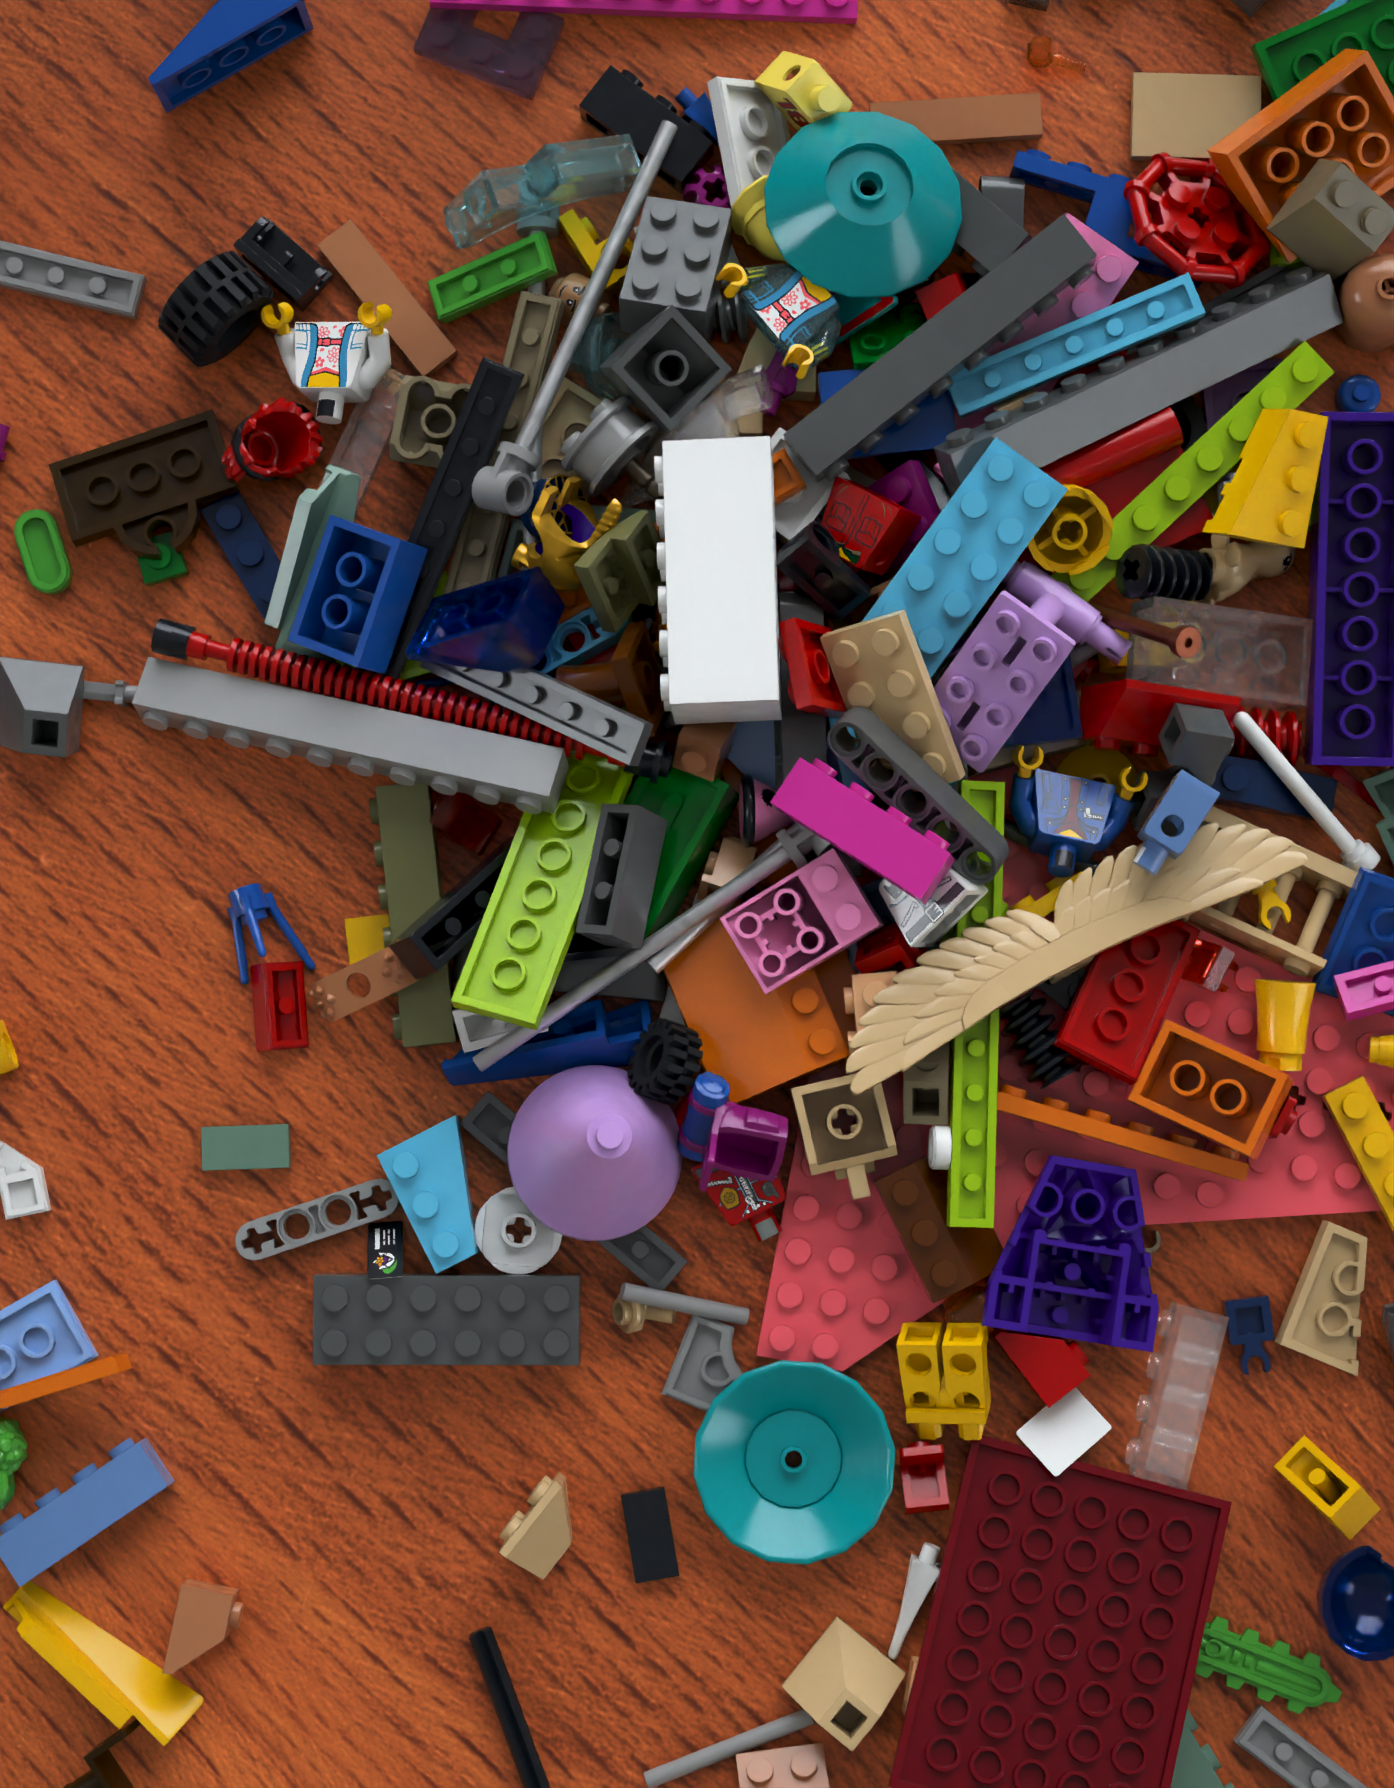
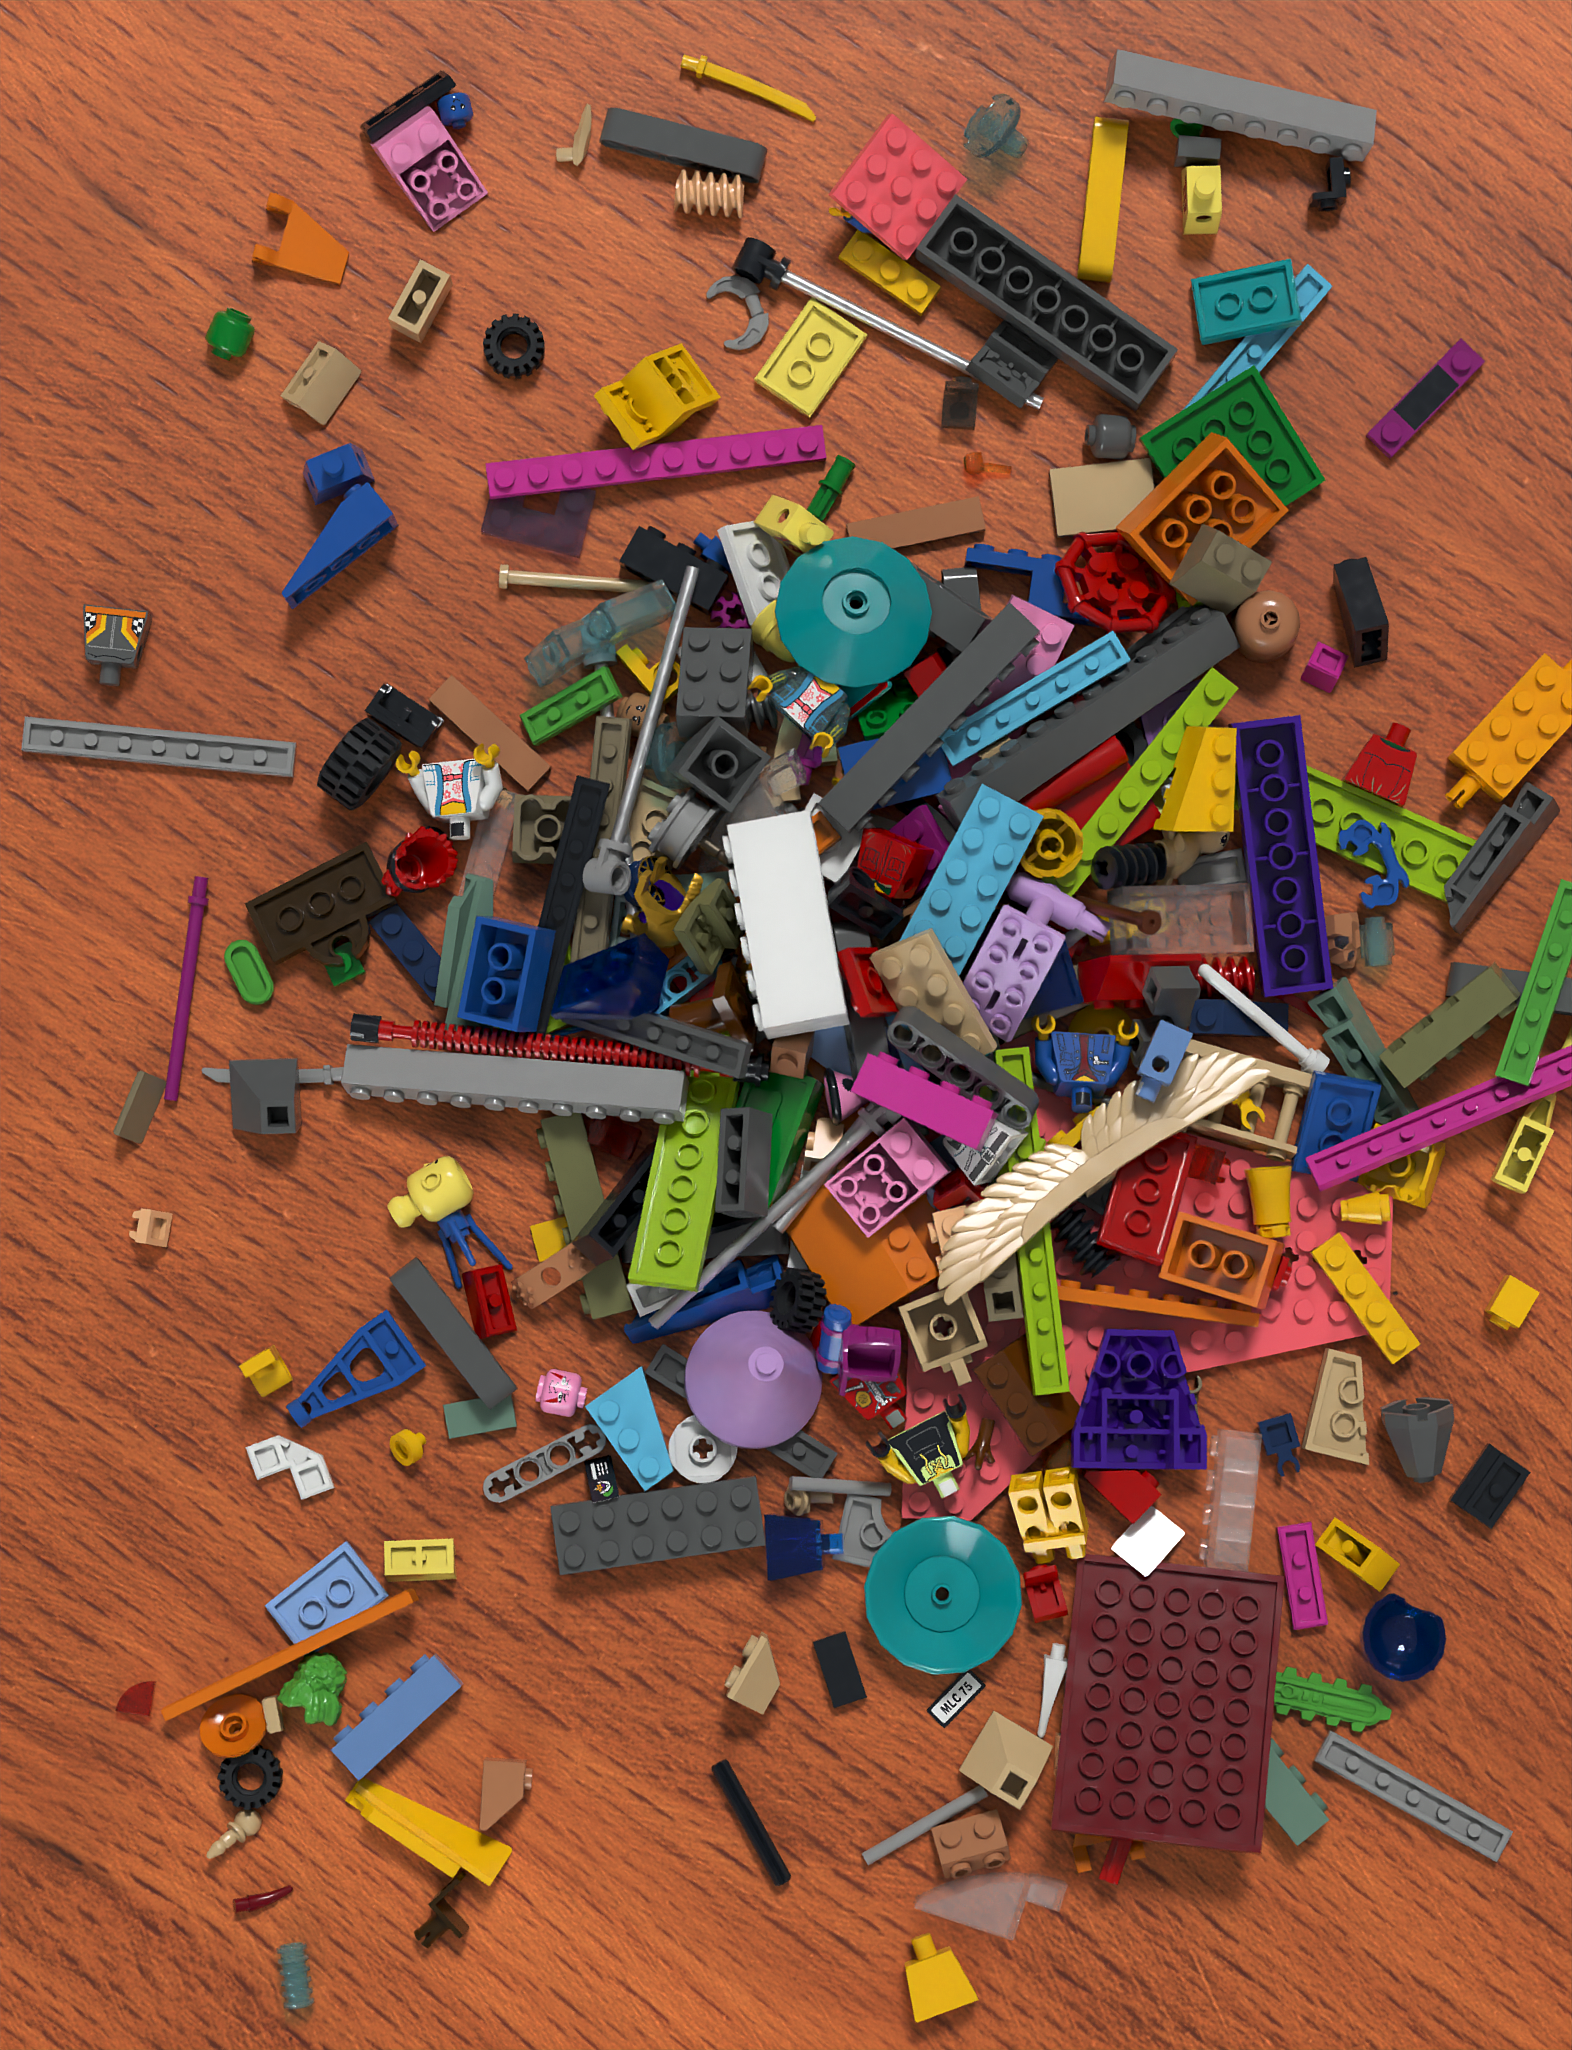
camera: 15 degrees left, 0 degrees up
(141, 1318) = (419, 1560): none -> light yellow hinge
(147, 1045) = (389, 1345): none -> blue plate
(148, 1172) = (407, 1446): none -> yellow tile
(226, 1039) = (453, 1333): none -> dark grey beam
(227, 858) = (433, 1192): none -> light yellow piece
(350, 1133) = (560, 1392): none -> bright pink head
(499, 122) = (567, 581): none -> tan bar
(619, 1370) = (797, 1545): none -> clear blue torso
(791, 1593) = (956, 1698): none -> sticker
(802, 1274) = (928, 1449): none -> torso
(859, 53) = (830, 487): none -> green axle
(871, 1279) = (982, 1444): none -> reddish brown bar
(939, 1147) = (1019, 1335): white tile -> none
(1216, 42) = (1110, 436): none -> dark grey head
(1253, 1503) = (1302, 1575): none -> dark pink tile
(1273, 596) = (1216, 868): none -> light grey tile
(1357, 394) = (1261, 700): blue piece -> none

